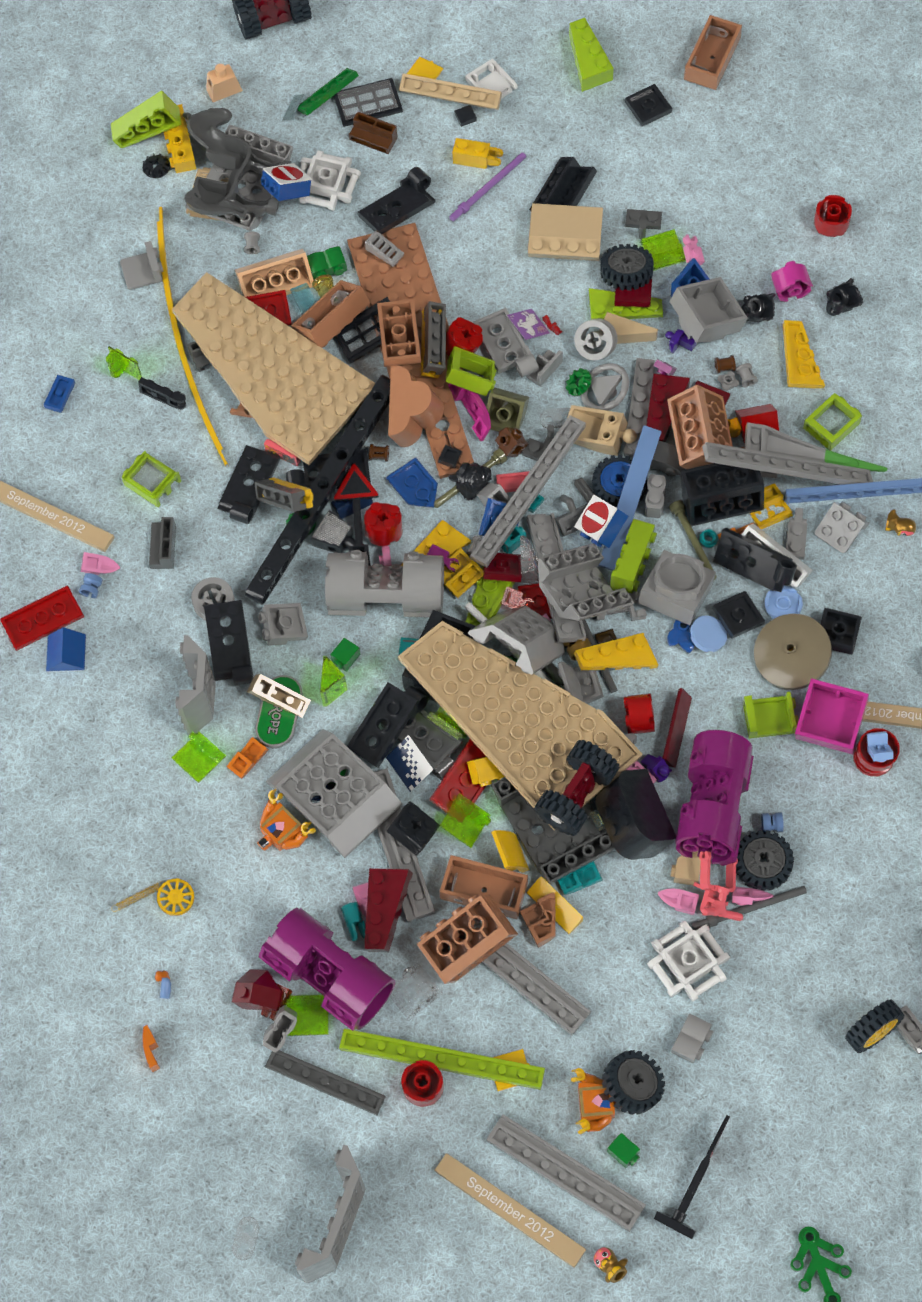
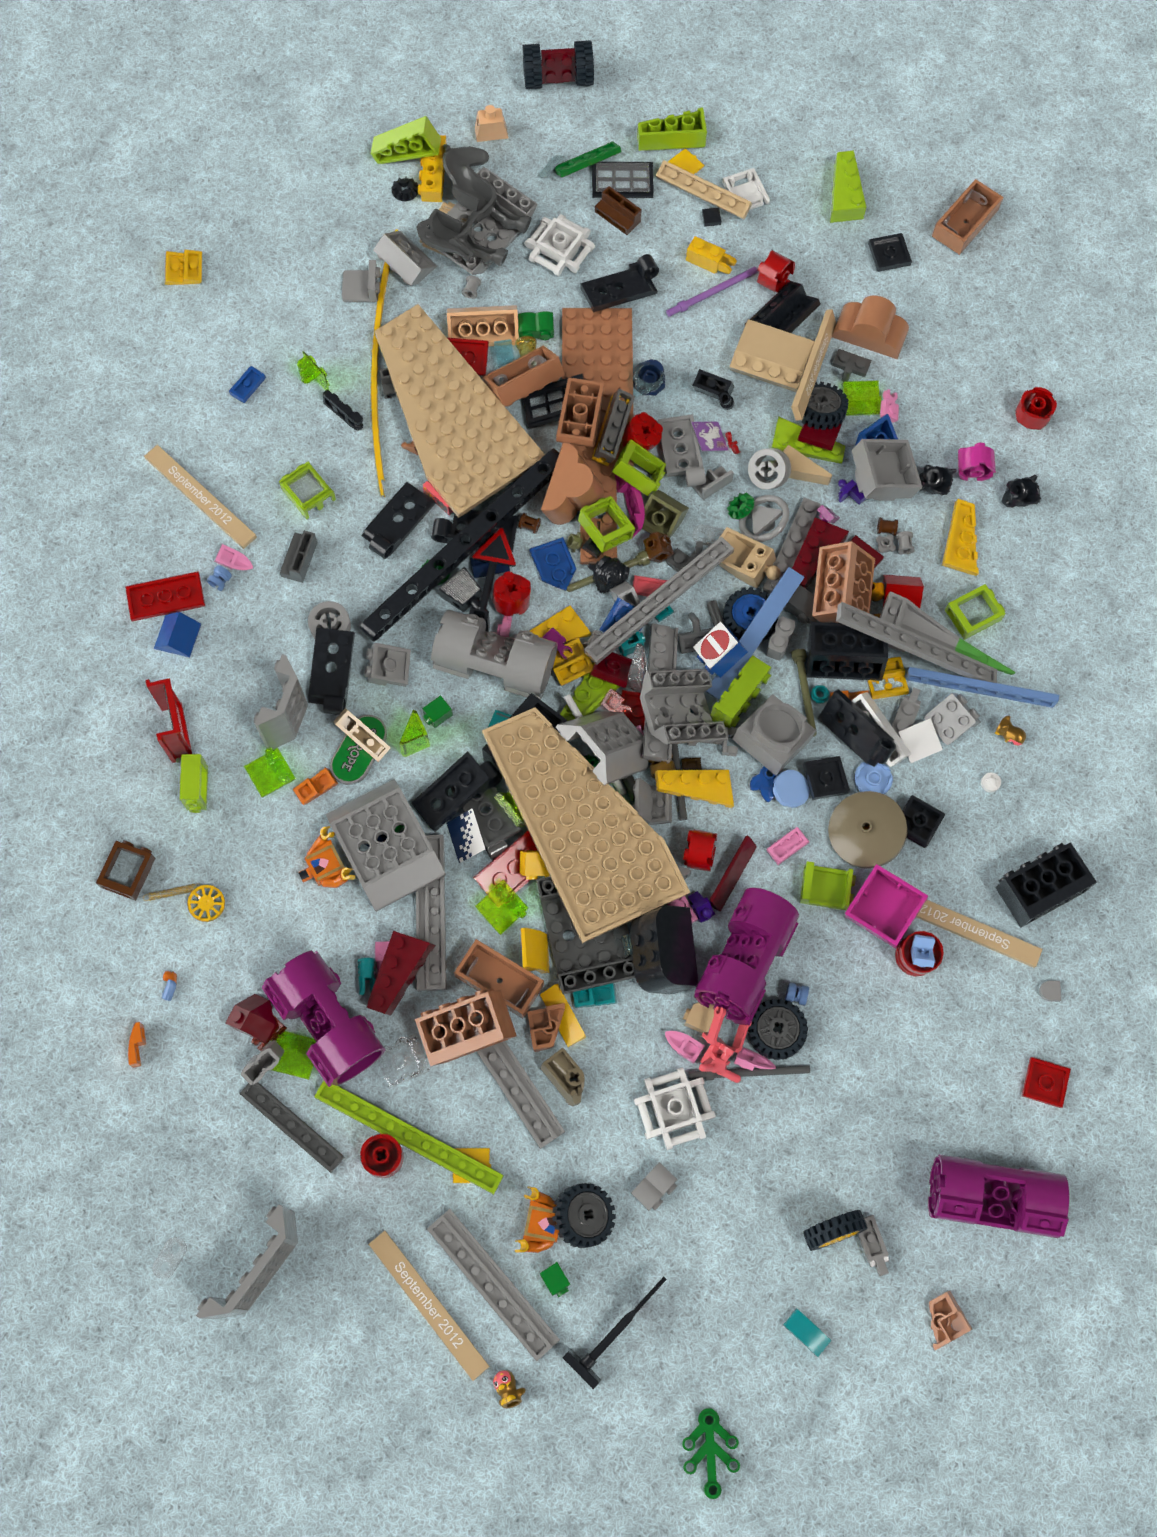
camera: 10 degrees right, 5 degrees up
(79, 711) = (174, 741): none -> red piece
(83, 906) = (133, 892): none -> reddish brown window
(129, 785) = (193, 782): none -> lime window
(177, 232) = (404, 257): none -> light grey slope
(284, 494) = (424, 540): dark grey piece -> none
(286, 182) = (519, 236): piece -> none
(375, 241) = (587, 316): light grey slope -> none
(404, 44) = (673, 132): none -> lime wedge
(413, 828) = (438, 899): black brick -> none
(428, 458) = (574, 542): none -> olive plate
(452, 284) = (649, 377): none -> piece
(466, 445) = (613, 539): none -> lime window
(519, 276) = (715, 387): none -> black hinge
(544, 151) = (775, 271): none -> red brick
(565, 810) = (635, 893): black plate -> none
(569, 957) = (559, 1070): none -> dark tan piece
(608, 230) = (813, 365): none -> tan tile
(653, 179) = (872, 326): none -> nougat brick
(721, 688) = (787, 845): none -> bright pink plate
(817, 555) = (921, 740): none -> white sticker
(877, 1130) = (807, 1332): none -> teal slope
(895, 576) = (991, 782): none -> white tile

